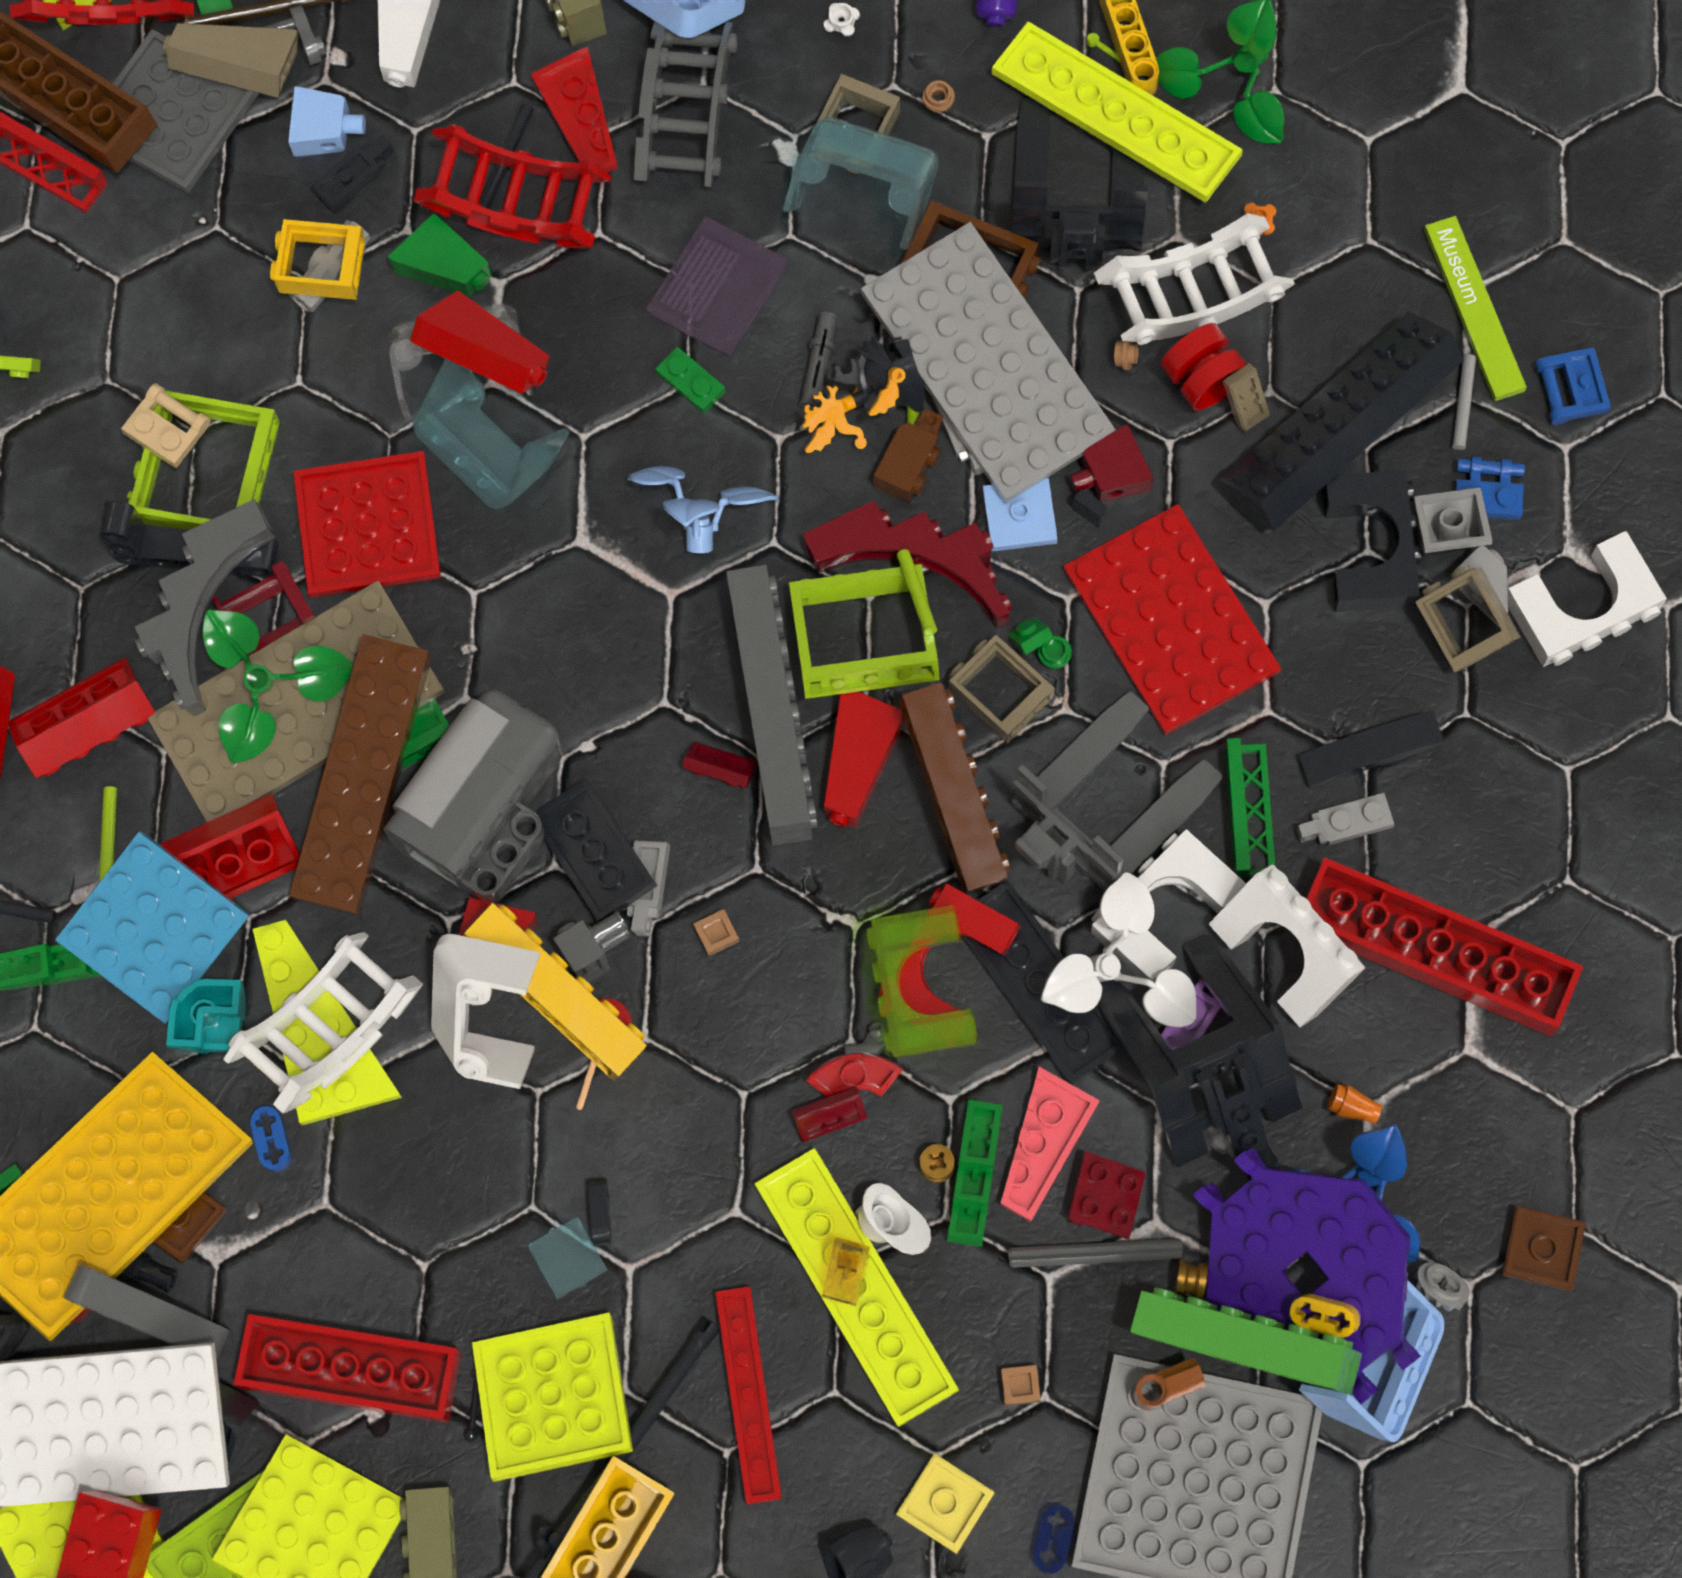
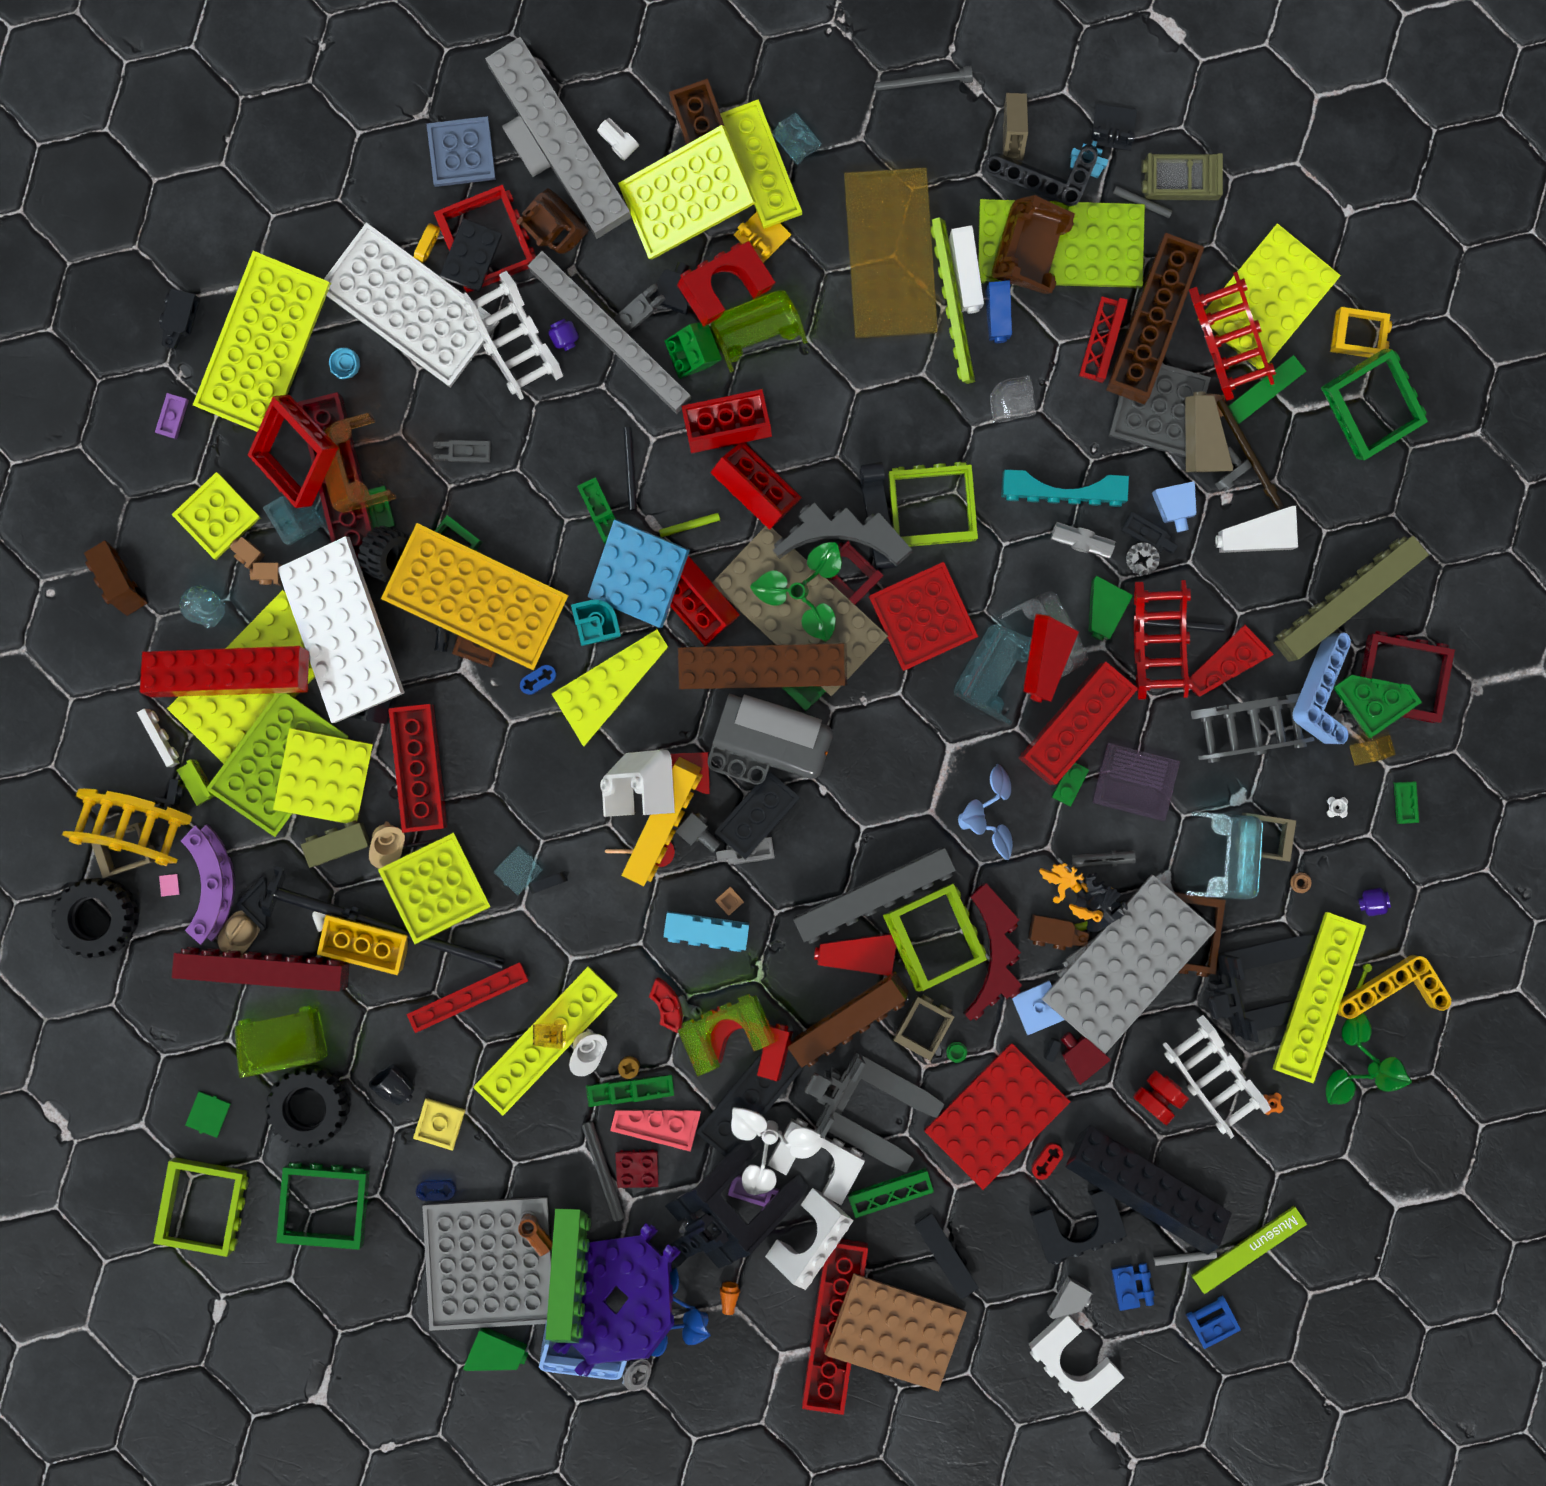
camera: 65 degrees right, 15 degrees up
(86, 310) = (1012, 399): none -> clear brick
(142, 1311) = (413, 646): dark grey beam -> none
(159, 434) = (941, 475): tan plate -> none
(218, 328) = (1020, 484): none -> teal arch
(323, 233) = (1084, 511): yellow window -> none
(345, 1051) = (597, 709): white fence -> none
(377, 202) = (1146, 550): none -> light grey gear
(456, 1457) = (386, 845): none -> tan piece
(599, 336) = (1078, 723): none -> red brick
(720, 765) = (831, 874): dark red plate -> none
(753, 977) = (706, 930): none -> medium azure wedge
(829, 1114) = (640, 998): dark red plate -> none
(916, 591) = (965, 964): lime bar -> none
(1020, 1385) = (515, 1149): medium nougat plate -> none
(1030, 635) = (961, 1035): green plate -> none
(1125, 354) = (1157, 1045): medium nougat plate -> none
(1191, 1279) = (602, 1230): pearl gold wheel -> none
(1246, 397) = (1147, 1128): dark tan plate -> none
(1256, 568) = (1051, 1164): none -> red beam
(1327, 1307) = (593, 1318): yellow beam -> none
(1348, 821) = (900, 1252): light grey hinge -> none
(1349, 1513) = (495, 1352): none -> green slope
(1441, 630) = (1024, 1308): dark tan window -> none
(1452, 520) = (1101, 1271): light grey slope -> none
(1471, 853) = (895, 1332): none -> medium nougat plate
(1543, 1248) = (675, 1425): reddish brown plate -> none

